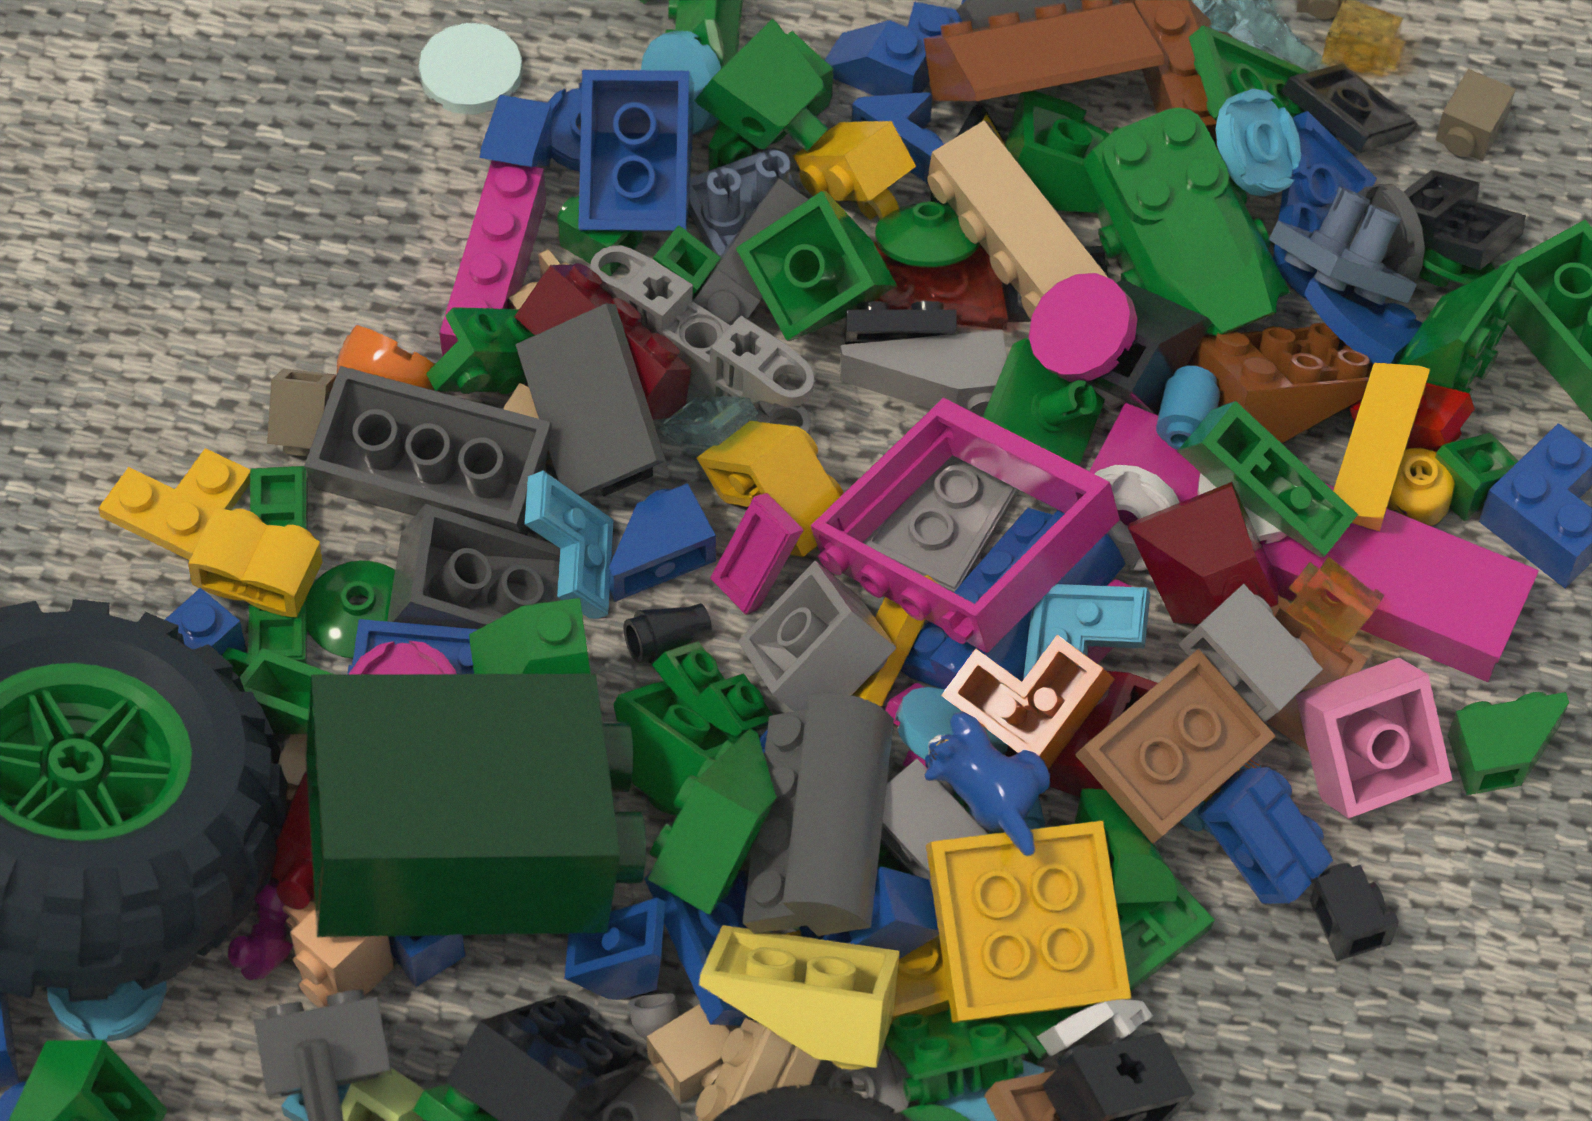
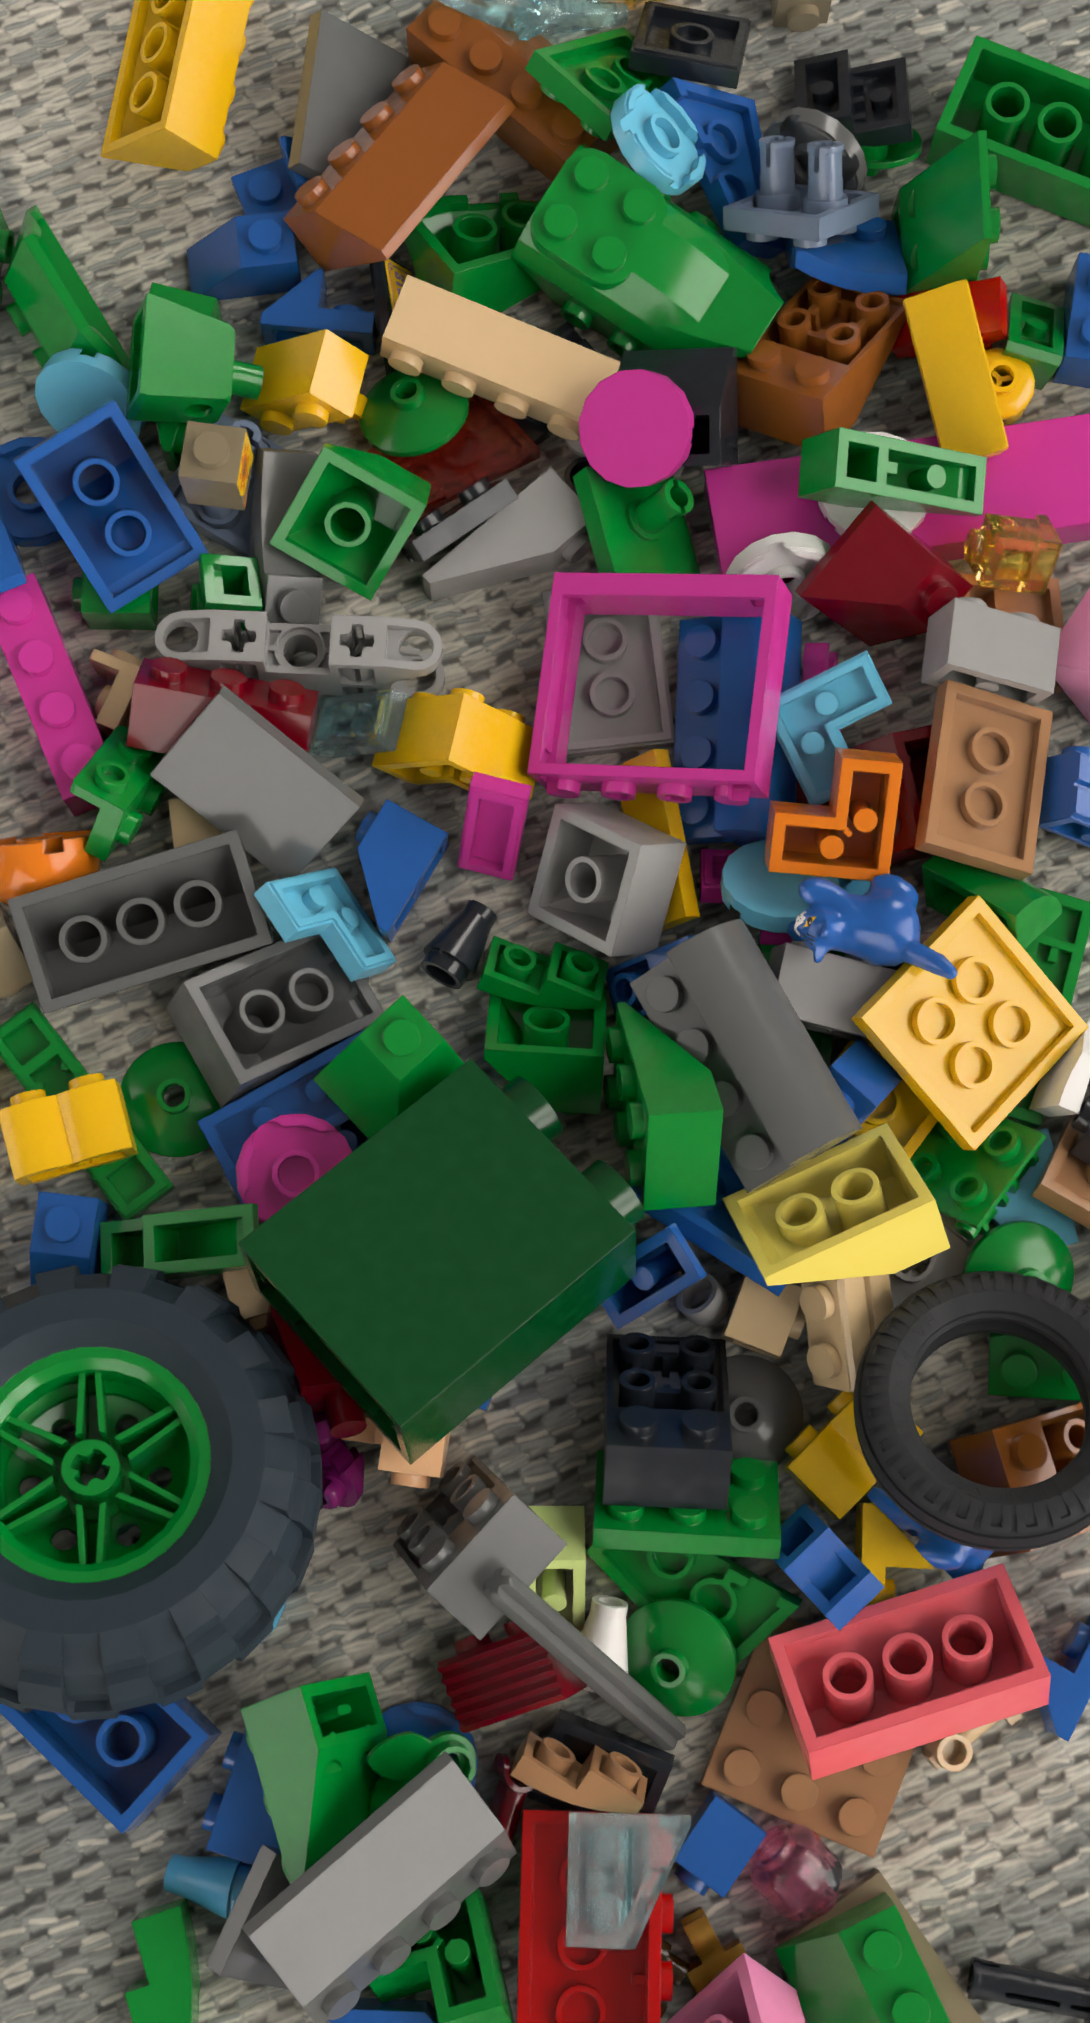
camera: 35 degrees left, 20 degrees up
(732, 162) = (216, 465): none -> dark tan brick
(1186, 403) = (769, 444): dark azure brick -> none

